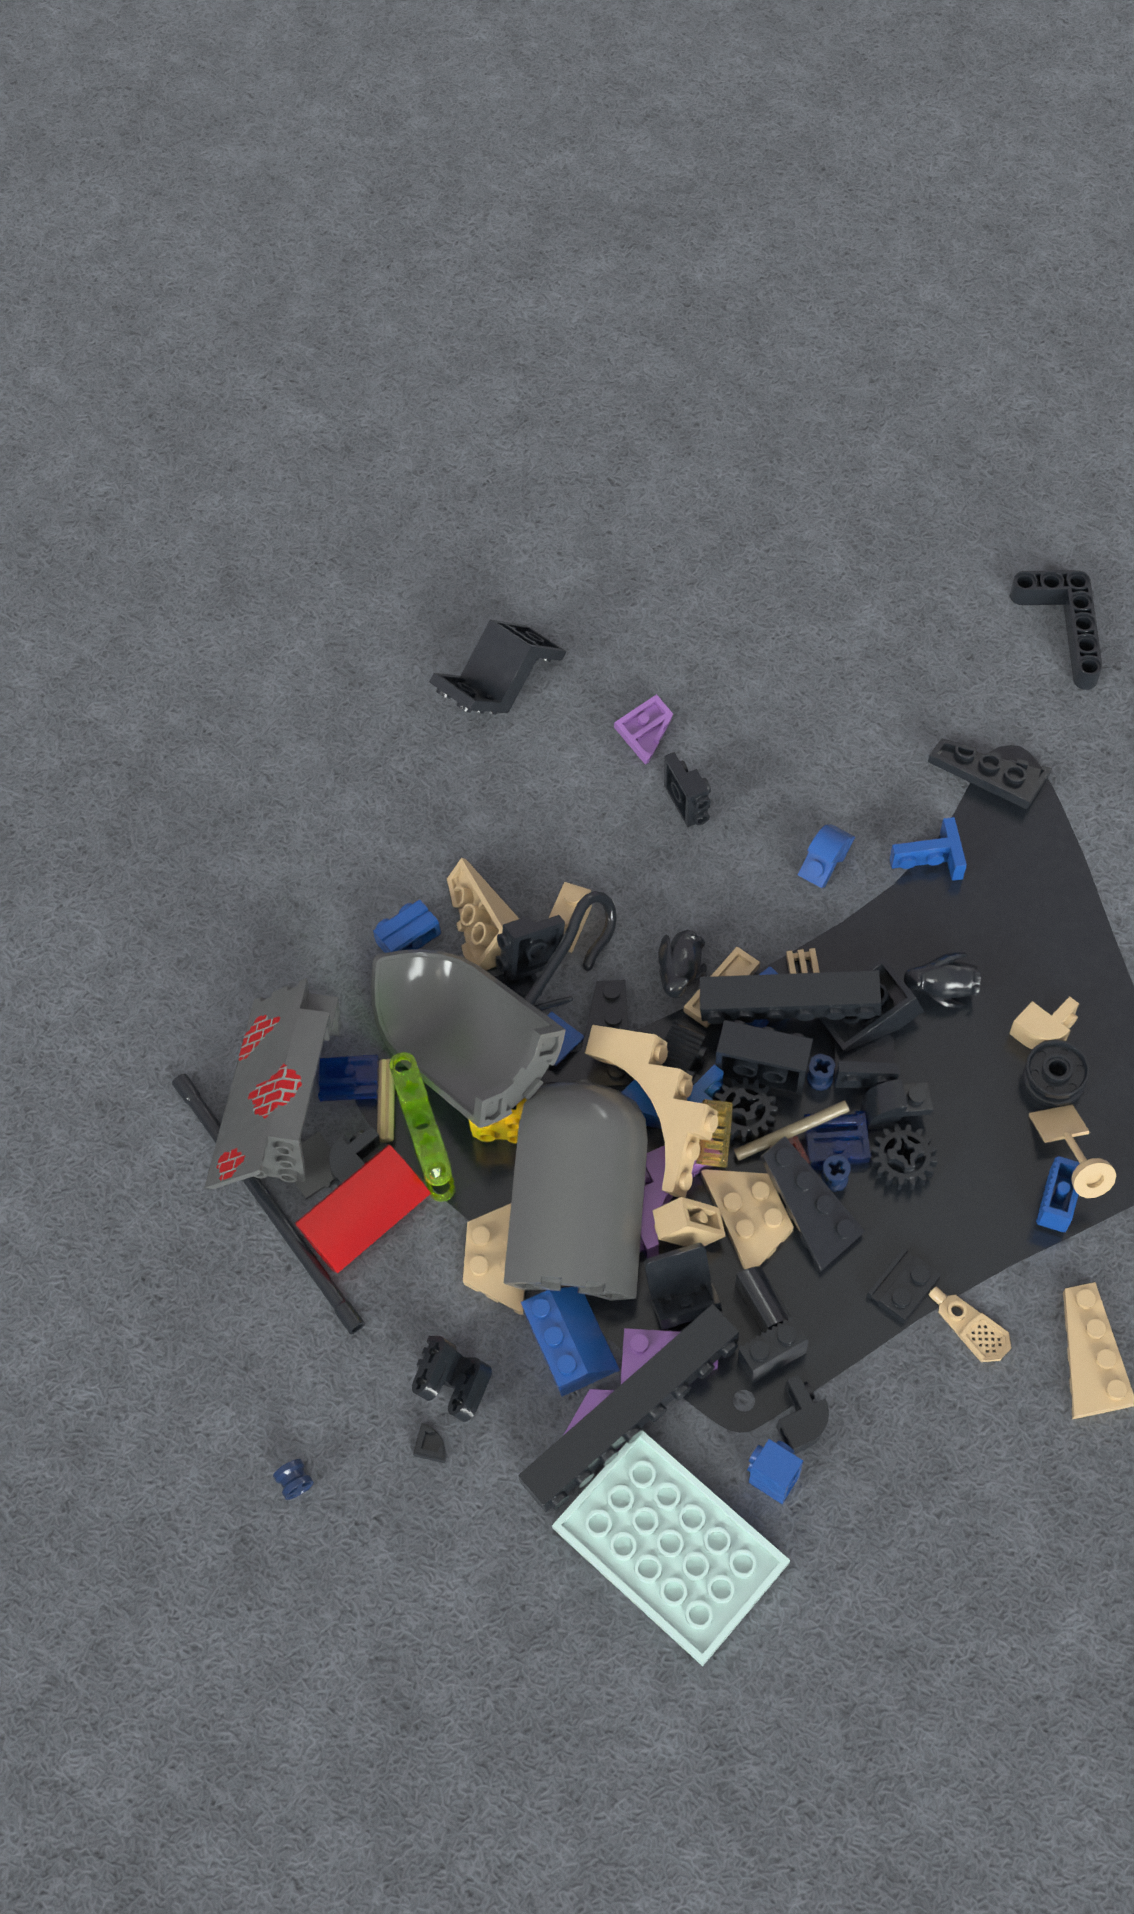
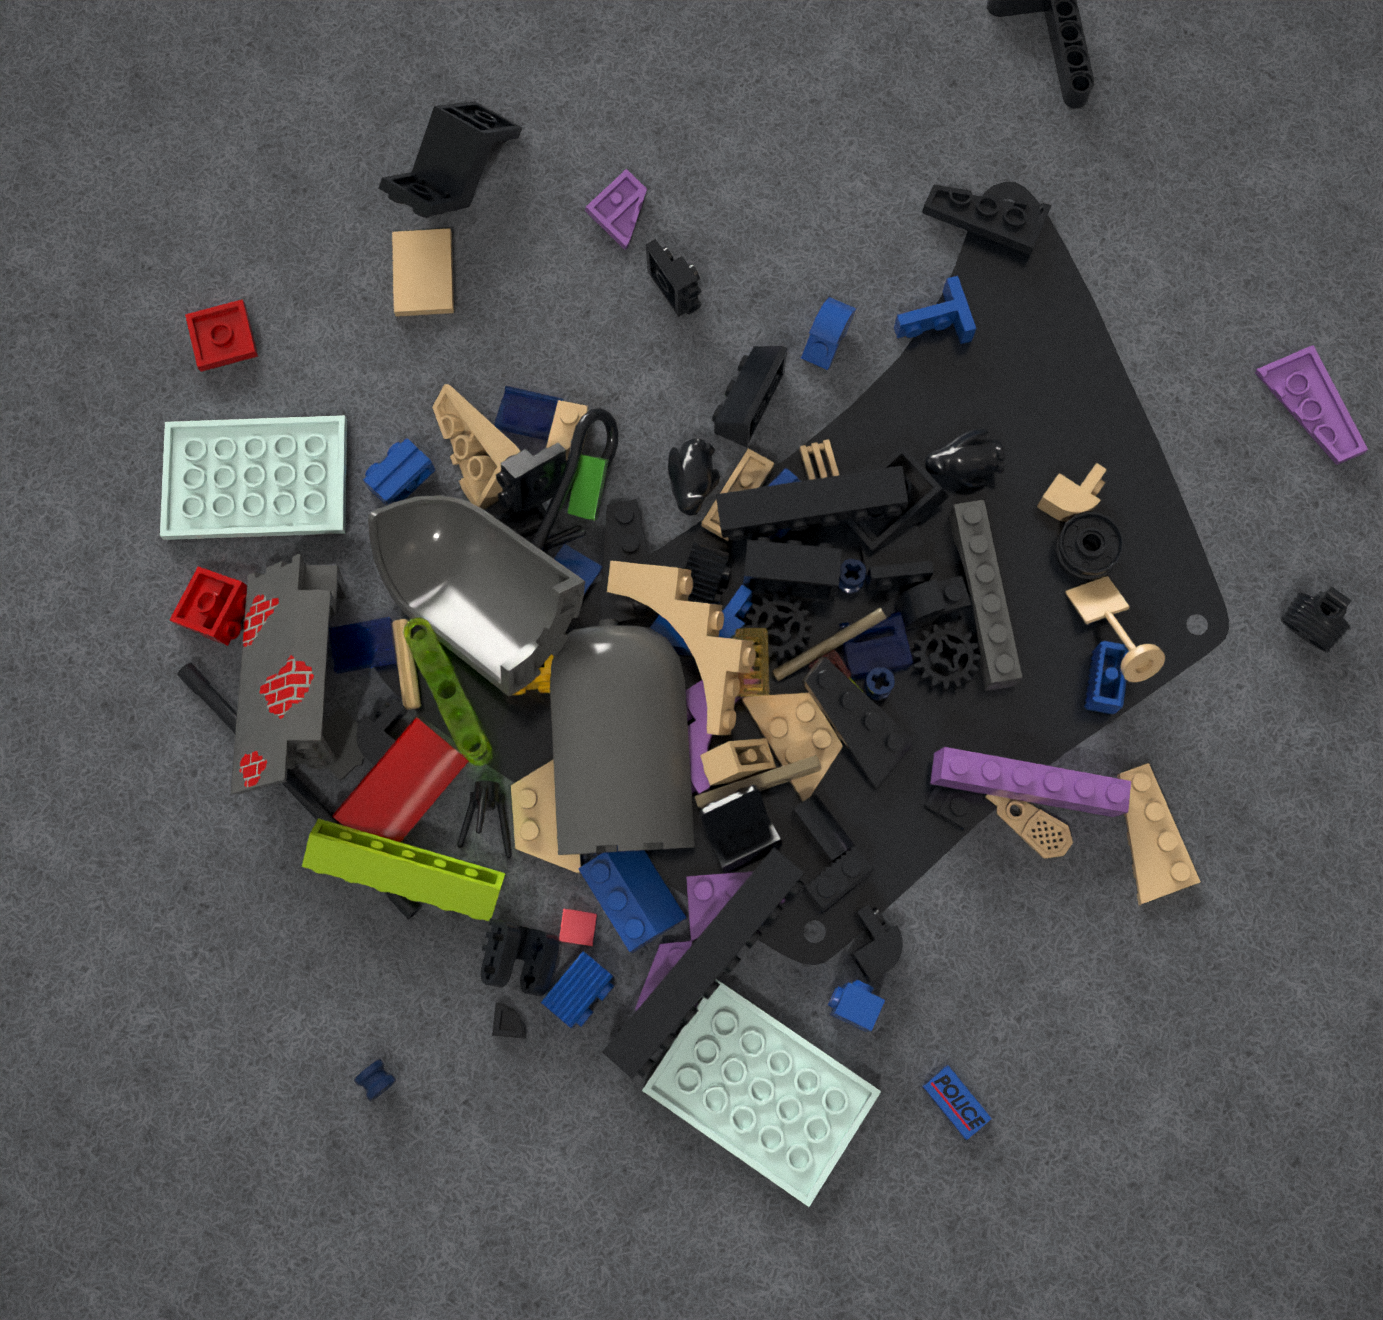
camera: 10 degrees left, 15 degrees up
(215, 1026) = (212, 606): none -> red plate
(265, 795) = (221, 335): none -> red plate
(273, 920) = (254, 477): none -> light aqua plate
(353, 1282) = (403, 870): none -> lime brick
(440, 1231) = (484, 798): none -> black plant
(456, 763) = (423, 272): none -> tan tile
(504, 1421) = (578, 991): none -> blue brick
(511, 1363) = (577, 927): none -> coral slope
(532, 893) = (526, 413): none -> clear blue plate
(581, 963) = (588, 487): none -> bright green slope
(722, 1243) = (763, 780): none -> dark tan tile
(745, 899) = (750, 393): none -> black slope
(865, 1585) = (956, 1102): none -> blue tile
(954, 1144) = (994, 631): none -> dark grey arch
(974, 1281) = (1030, 782): none -> medium lavender brick

